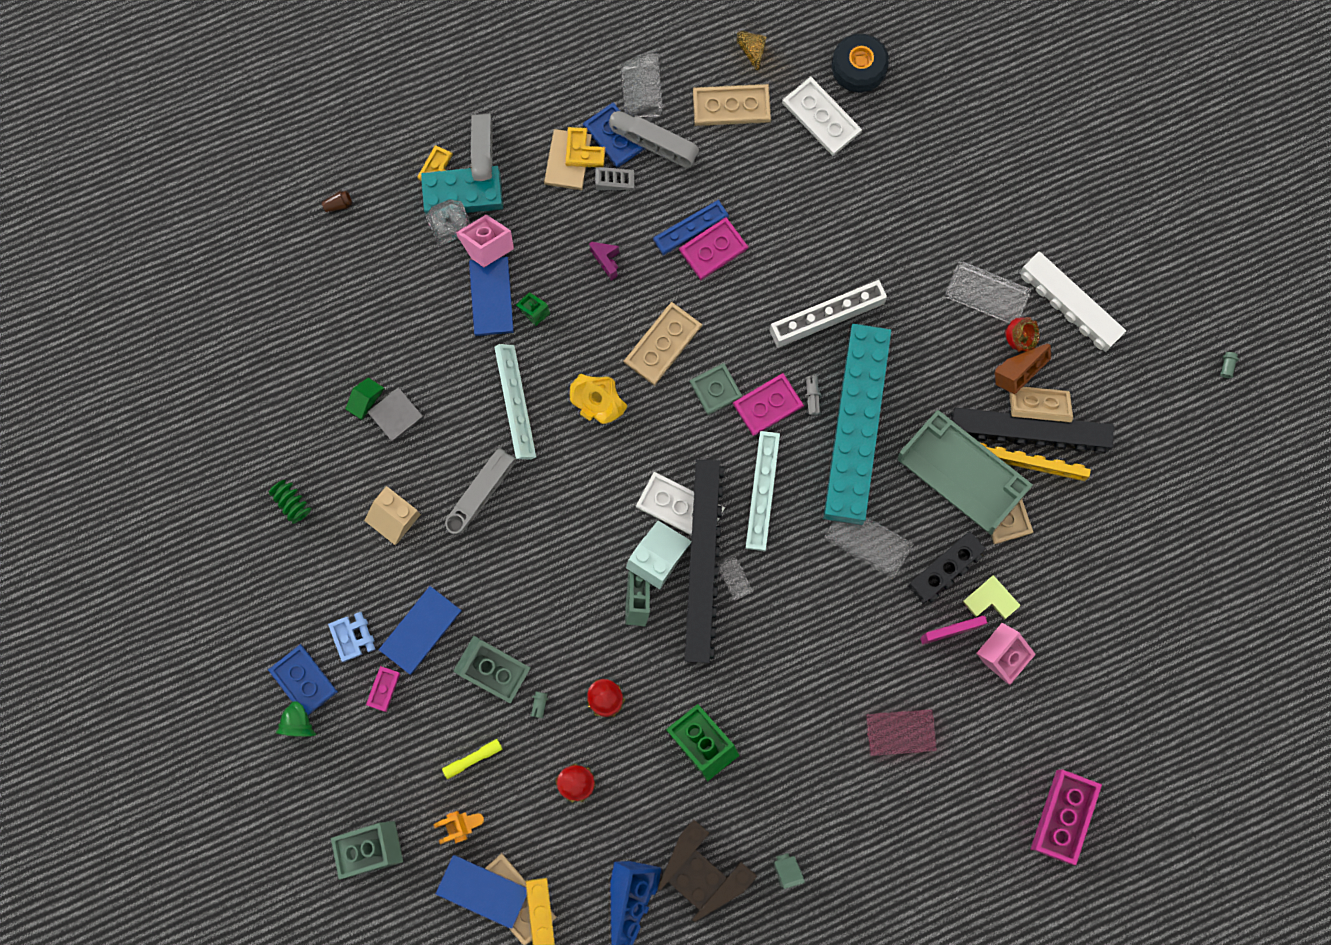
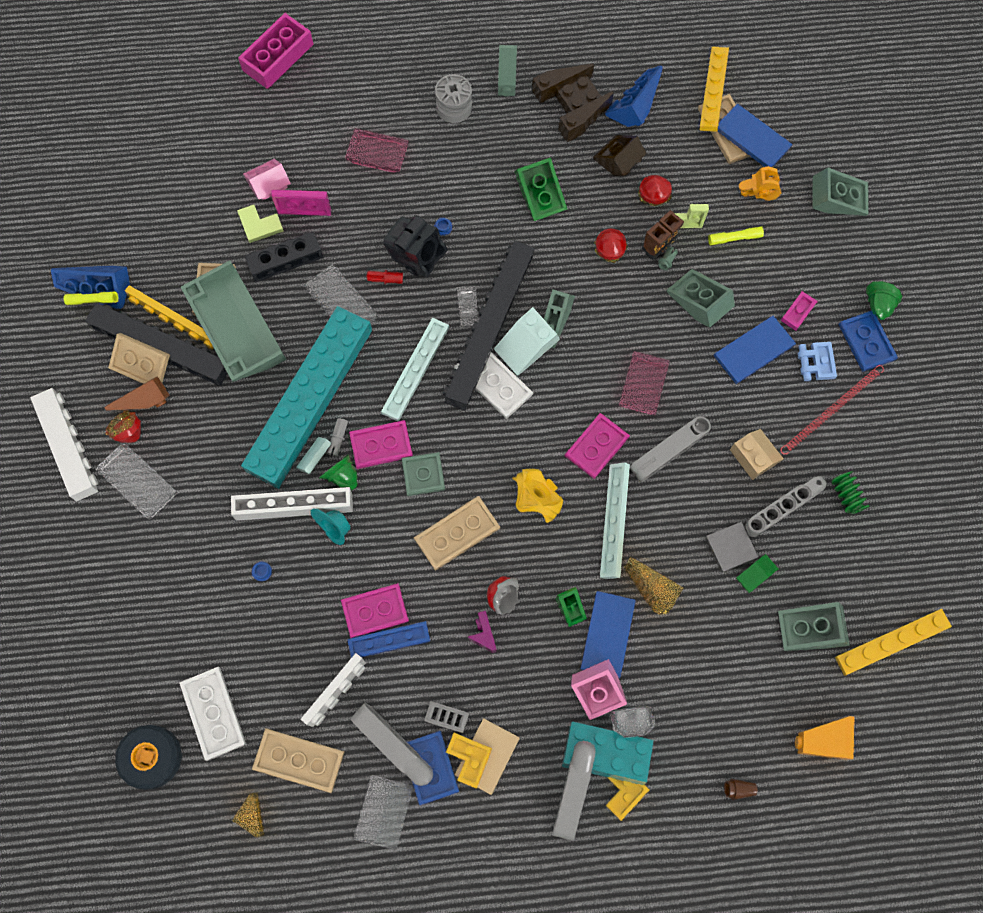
camera: 165 degrees left, 5 degrees down
(222, 375) = (893, 642): none -> yellow plate
(267, 266) = (828, 740): none -> light orange slope
(299, 361) = (814, 627): none -> sand green slope
(327, 591) = (832, 406): none -> coral piece
(332, 496) = (809, 489): none -> light grey piece
(455, 344) = (655, 588): none -> clear yellow slope
(525, 554) = (644, 383): none -> clear pink piece
(527, 757) = (695, 216): none -> yellowish green tile
(553, 716) = (662, 235): none -> reddish brown hips
(554, 473) = (597, 446): none -> dark pink tile
(599, 295) = (503, 595): none -> light grey hair
(628, 817) = (620, 154): none -> dark brown slope
(719, 166) = (340, 684): none -> white plate
(778, 309) = (332, 523): none -> teal piece
(793, 662) = (444, 226): none -> blue plate
(794, 358) = (342, 474): none -> green piece
(812, 616) = (415, 245): none -> black piece
(828, 369) = (313, 455): none -> light aqua tile
(831, 248) = (261, 571): none -> blue plate
(831, 811) = (453, 98): none -> light grey wheel
(832, 581) = (386, 277): none -> red axle
(1111, 455) = (102, 297): none -> neon yellow piece
(1121, 476) = (93, 280): none -> blue wedge

